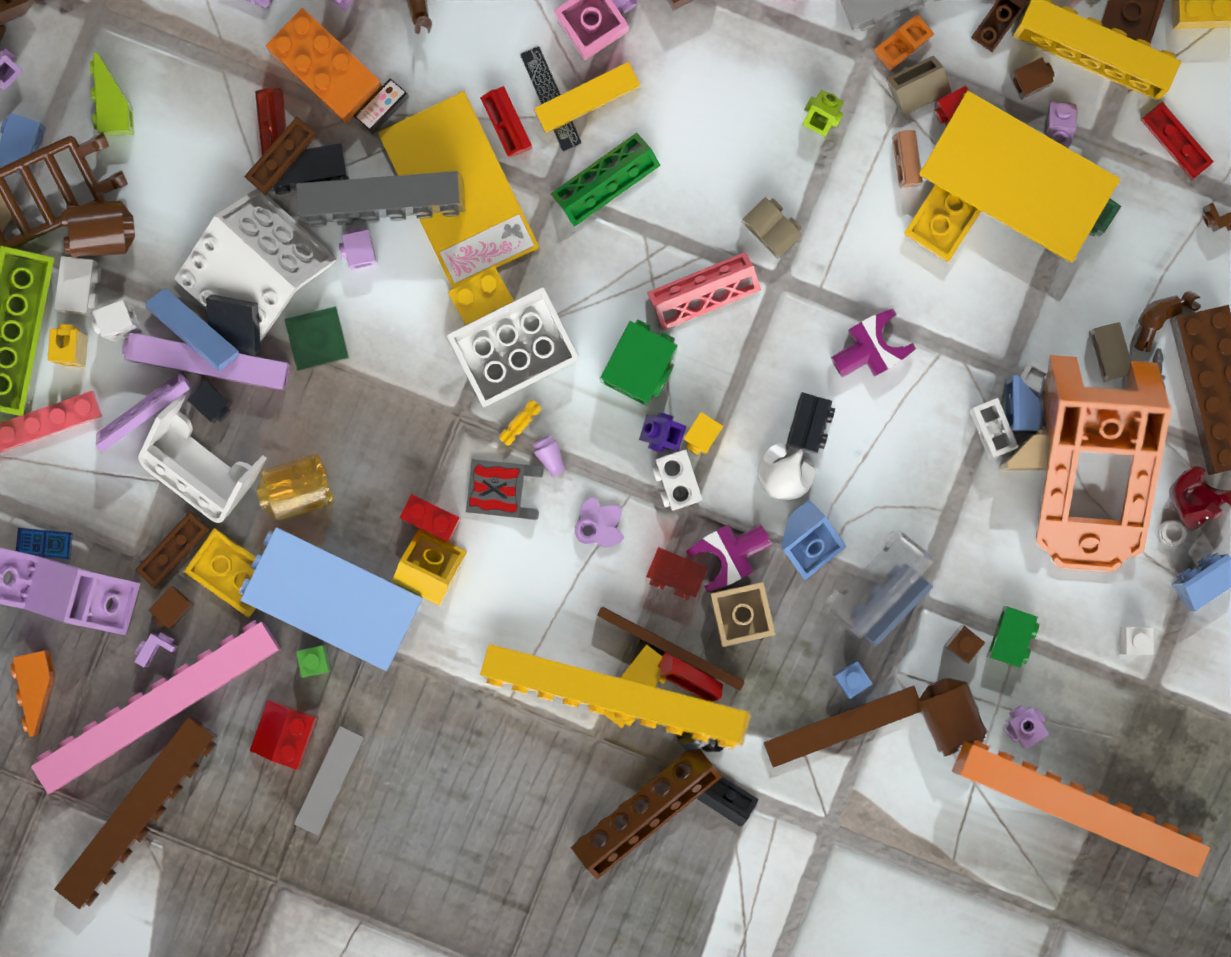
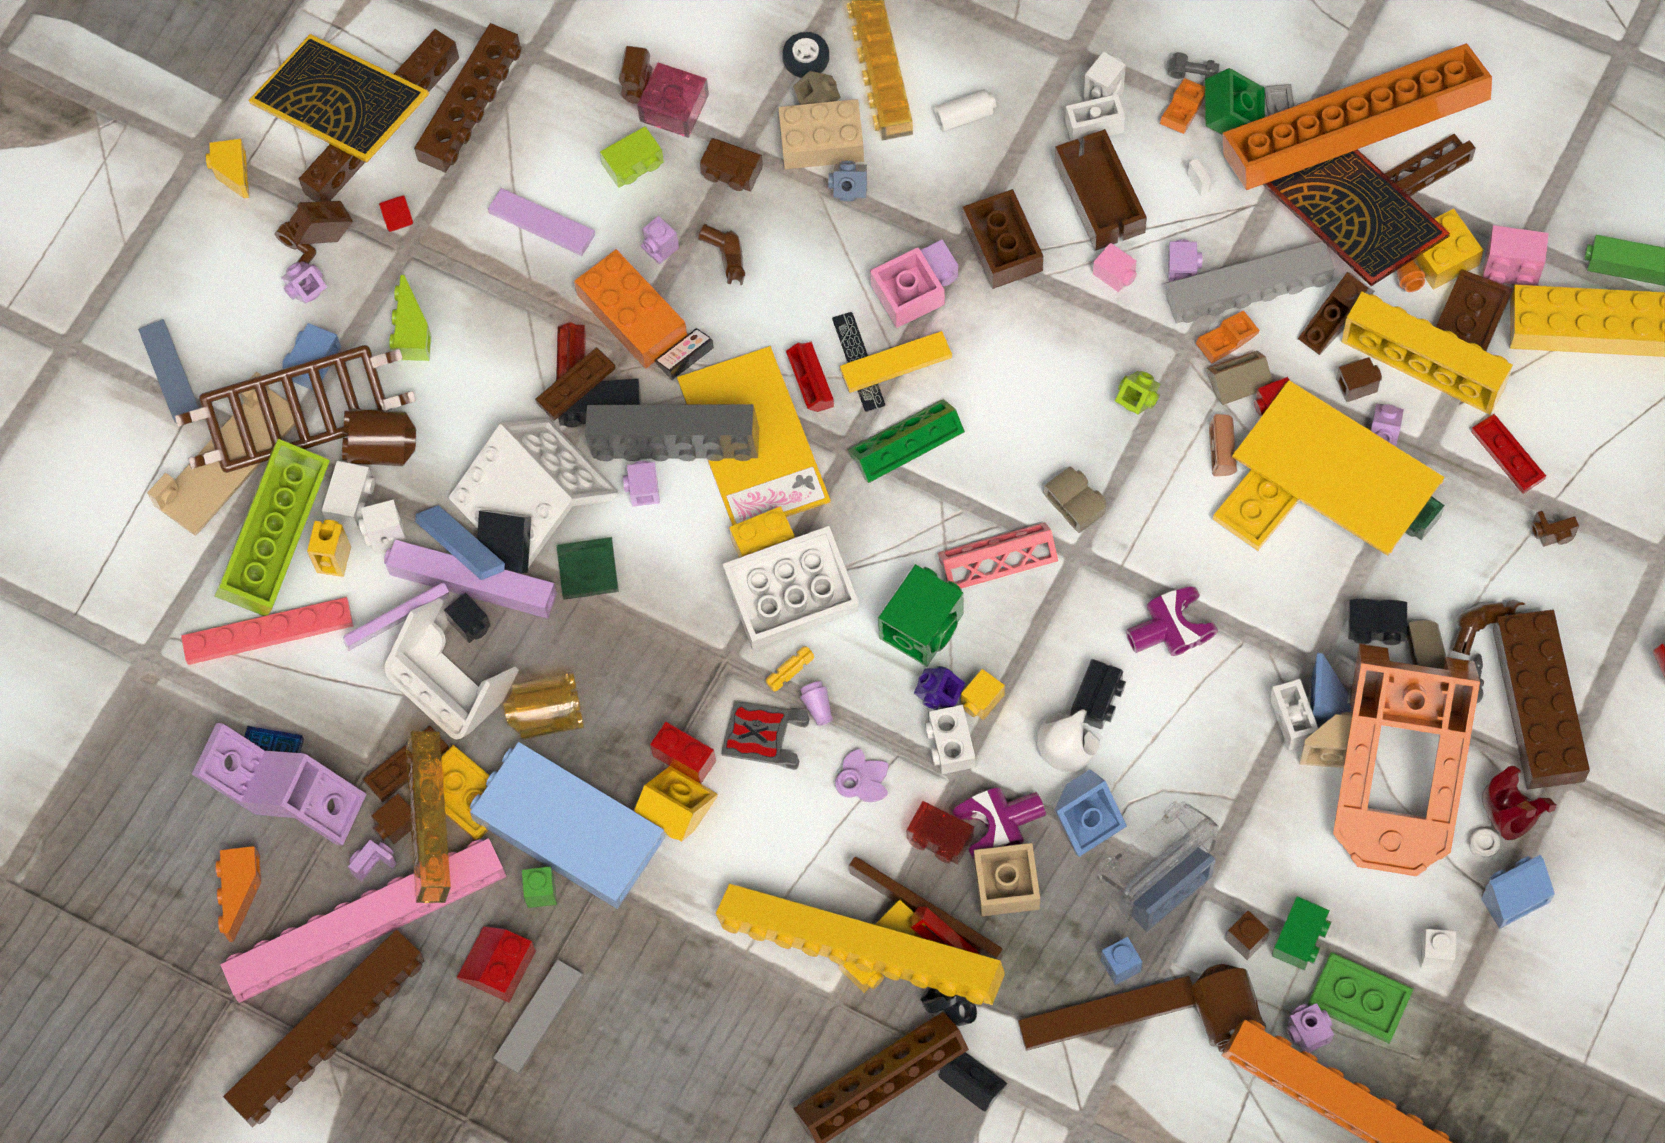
camera: 10 degrees right, 20 degrees down
(201, 610) = (428, 817): none -> clear yellow brick
(1064, 325) = (1377, 621): none -> black brick
(1068, 689) = (1360, 997): none -> bright green tile

